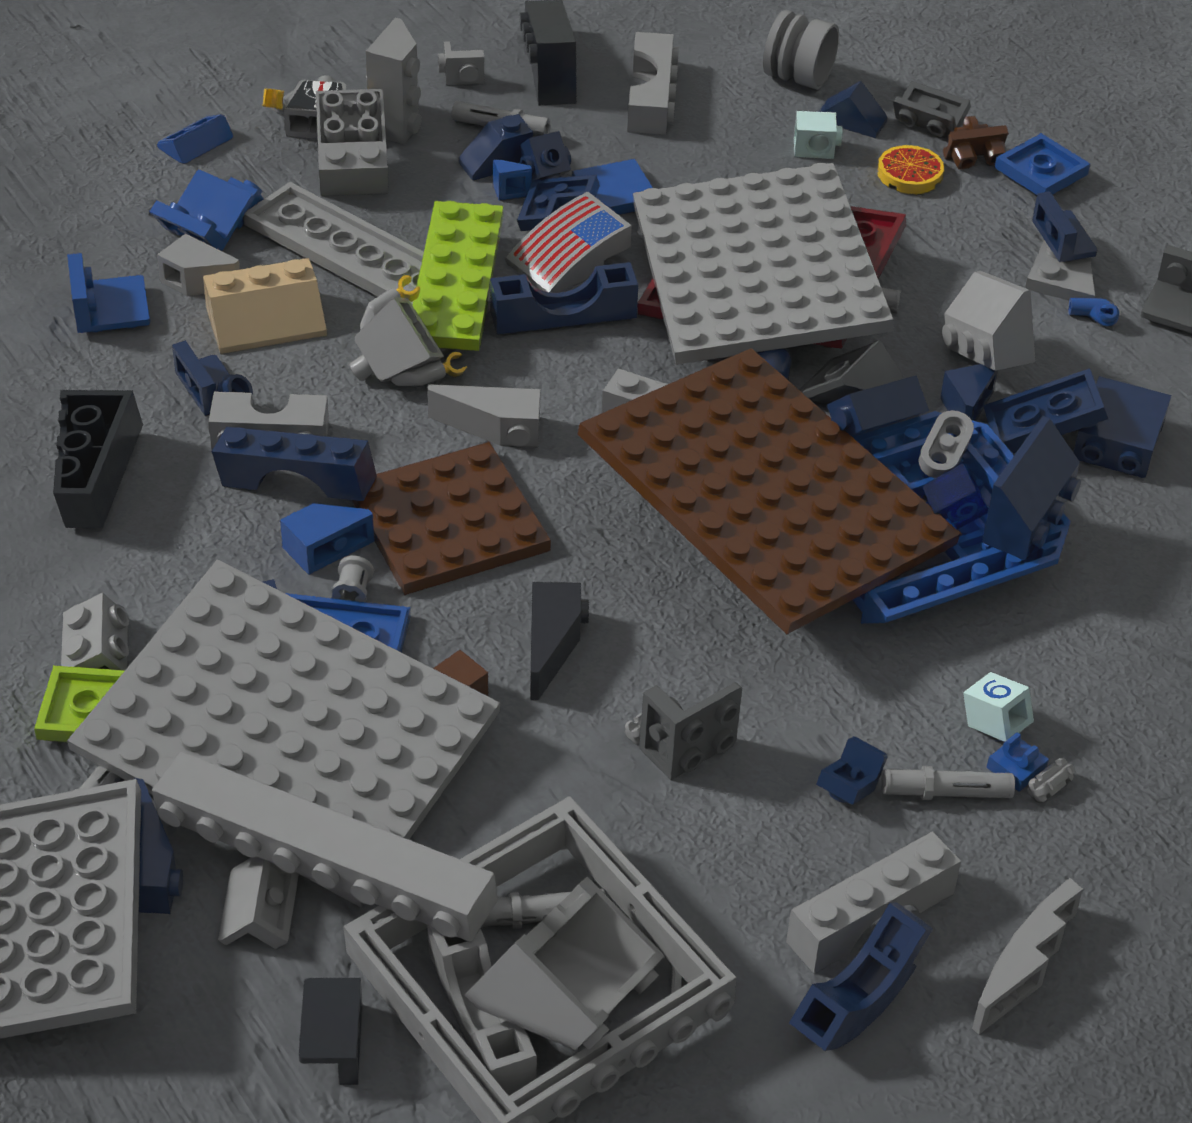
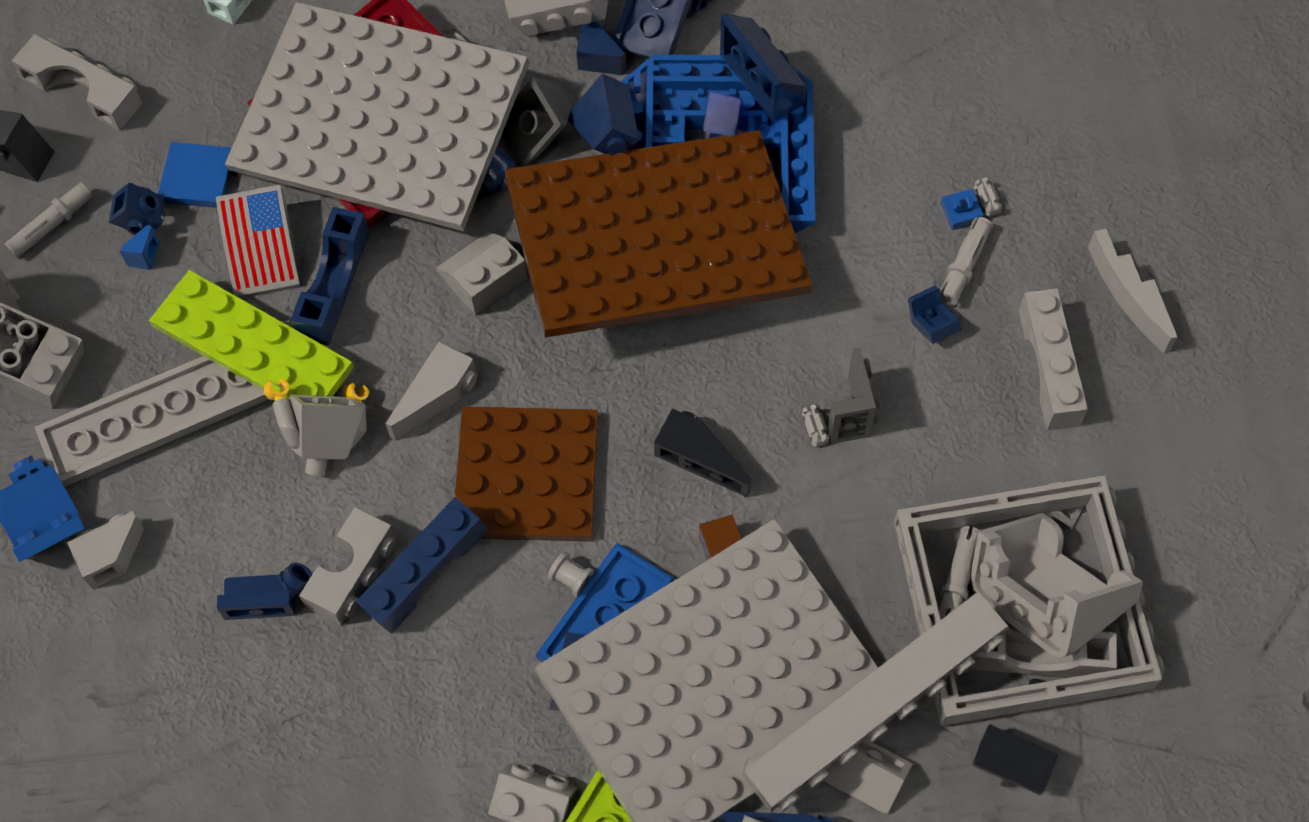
camera: 60 degrees left, 20 degrees up
(93, 452) = (307, 721): black wedge -> none
(106, 302) = (104, 642): blue bracket -> none
(264, 305) = (194, 514): tan slope -> none
(325, 534) = (505, 576): blue slope -> none
(495, 141) = (92, 240): dark blue slope -> none
(550, 194) = (184, 226): dark blue plate -> none
(852, 1000) = (1116, 398): dark blue arch -> none
(943, 446) = (671, 93): light grey plate -> none
(998, 706) = (917, 194): light aqua brick -> none

